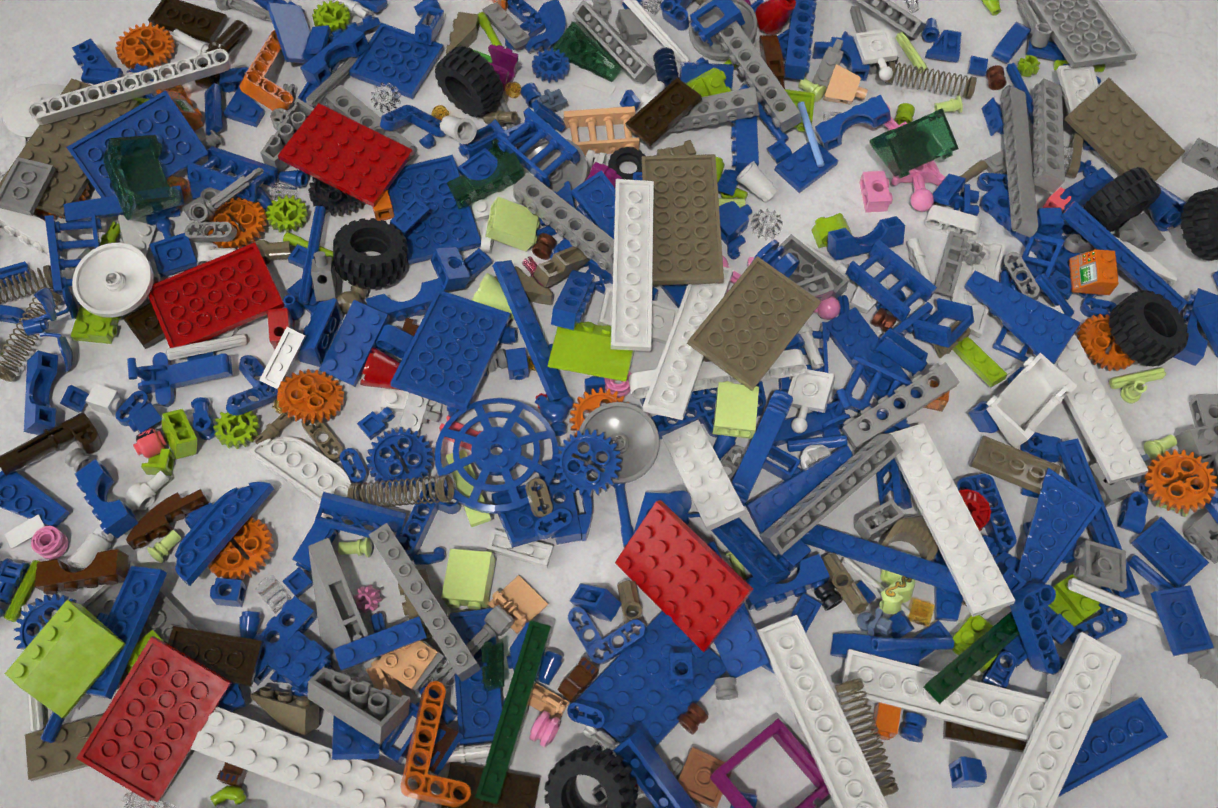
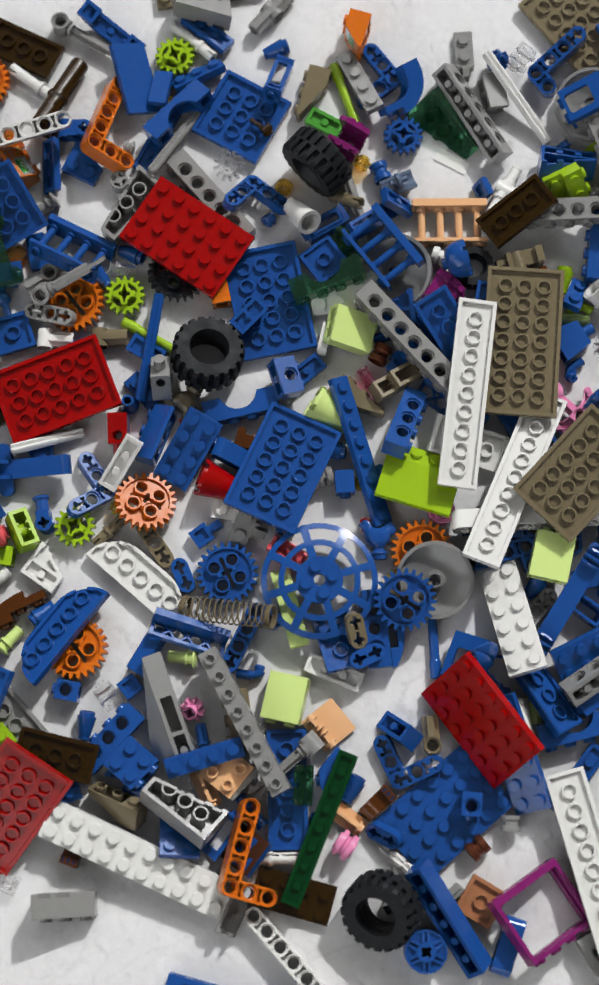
camera: 10 degrees right, 15 degrees up
(202, 472) = (43, 569): none -> white wing
(229, 792) = (68, 872): lime arm -> none
(419, 65) = (266, 130): none -> dark brown hand
(594, 383) = (414, 513): blue plate -> none
(611, 153) = (457, 260): none -> blue cylinder
(665, 65) = (524, 149): dark blue piece -> none

